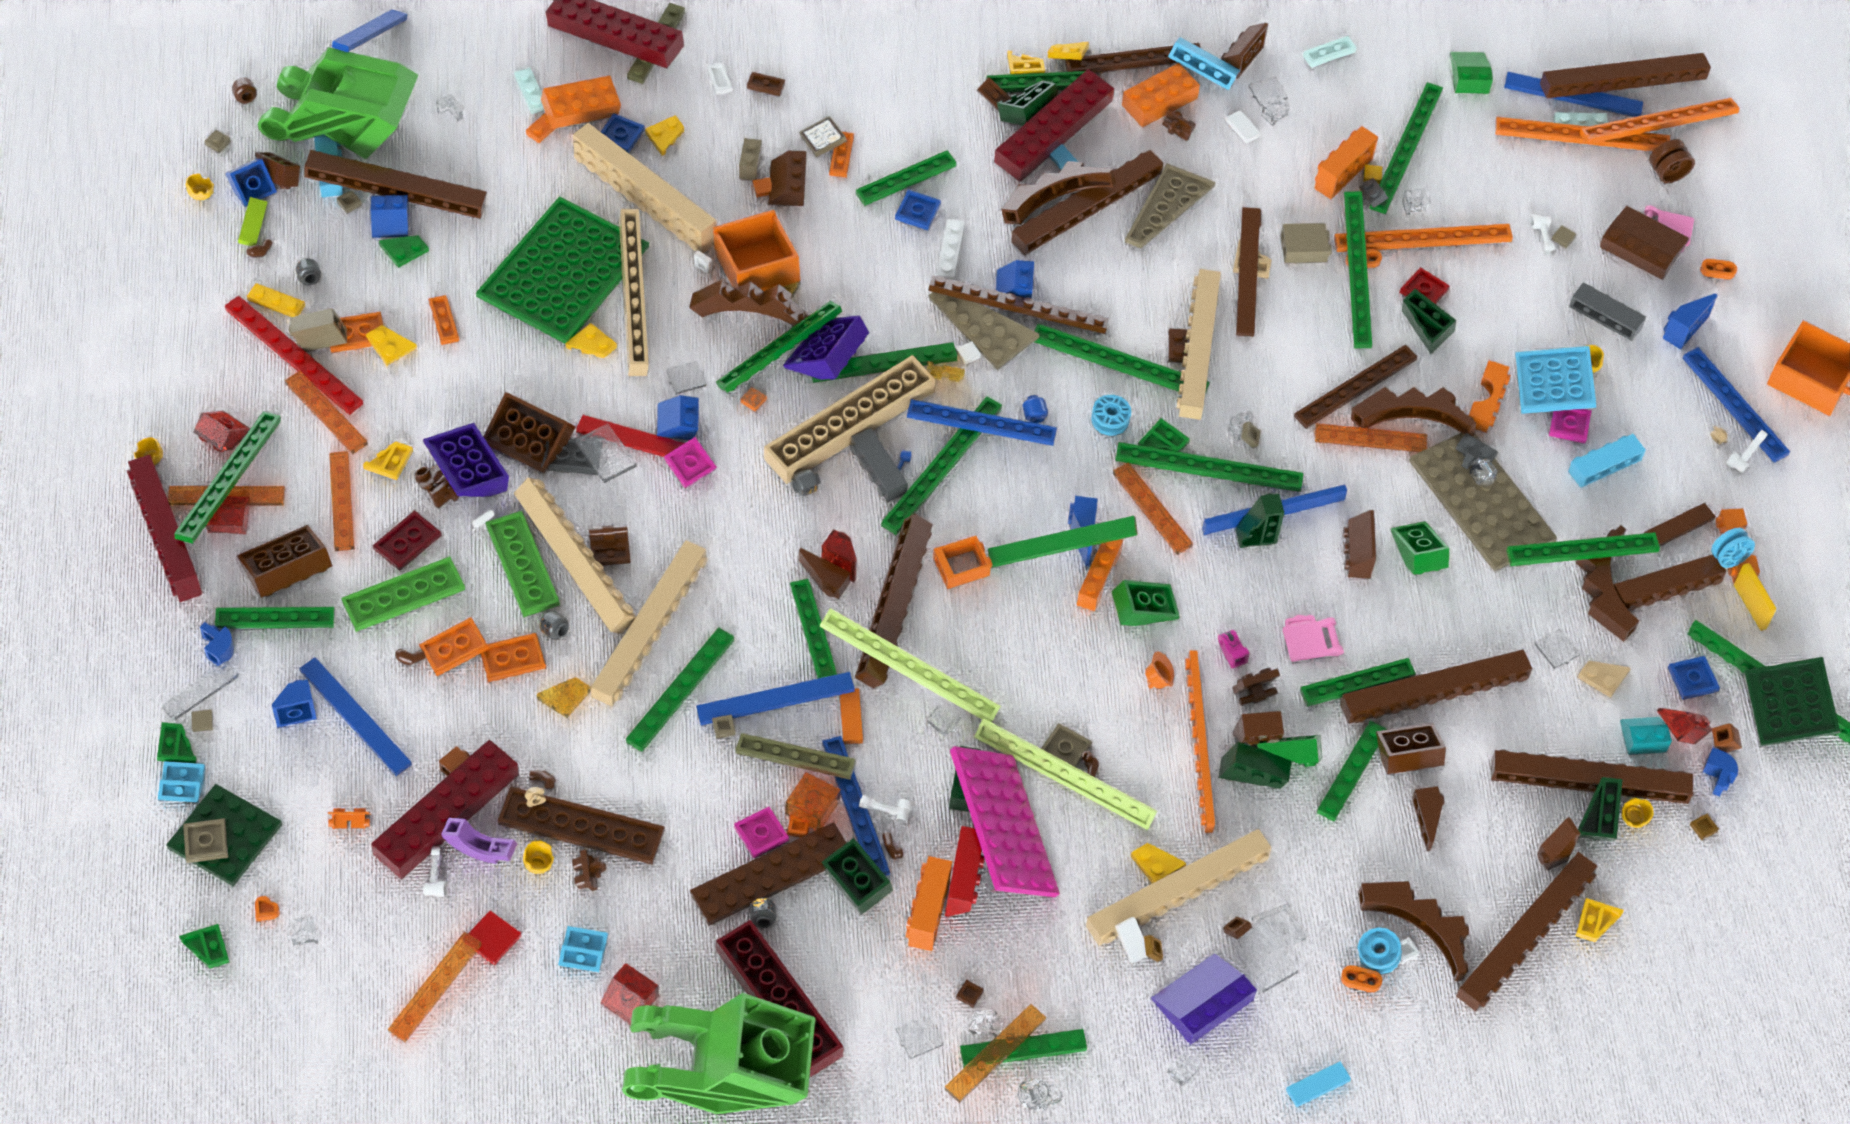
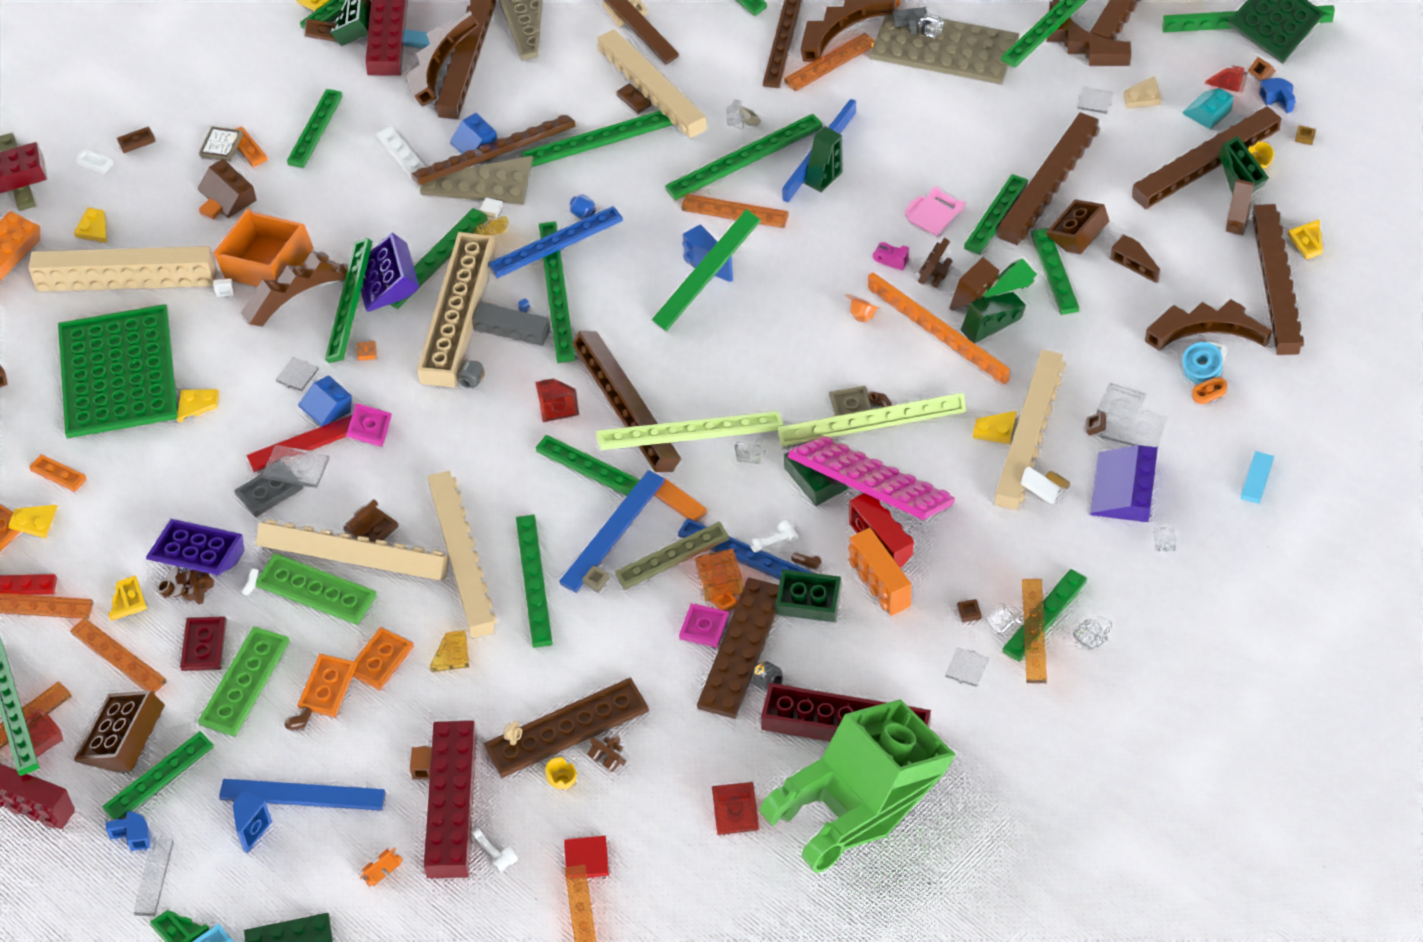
camera: 35 degrees left, 5 degrees down
(202, 720) = (180, 896): dark tan tile -> none
(475, 844) = (505, 803): medium lavender arch -> none
(523, 430) = (213, 496): reddish brown slope -> none
(543, 776) = (497, 718): reddish brown arm -> none
(554, 625) = (389, 610): dark grey head -> none
(583, 949) = (663, 808): medium azure slope -> none
(623, 131) = (58, 242): blue plate -> none
(633, 292) = (196, 342): tan brick -> none
(750, 159) = (182, 195): dark tan brick -> none
(828, 576) = (555, 423): reddish brown slope -> none
(917, 210) = (348, 142): blue plate -> none
(957, 548) = (640, 355): orange window -> none
(1098, 573) = (754, 285): orange arch -> none
(1111, 415) = (639, 172): medium azure wheel -> none
(1144, 603) = (799, 272): green slope -> none
(1164, 437) = (693, 159): green wing -> none
(1360, 545) = (903, 127): reddish brown slope -> none
(1421, 548) = (942, 102): green slope -> none
(1693, 677) = (1198, 53): blue plate -> none

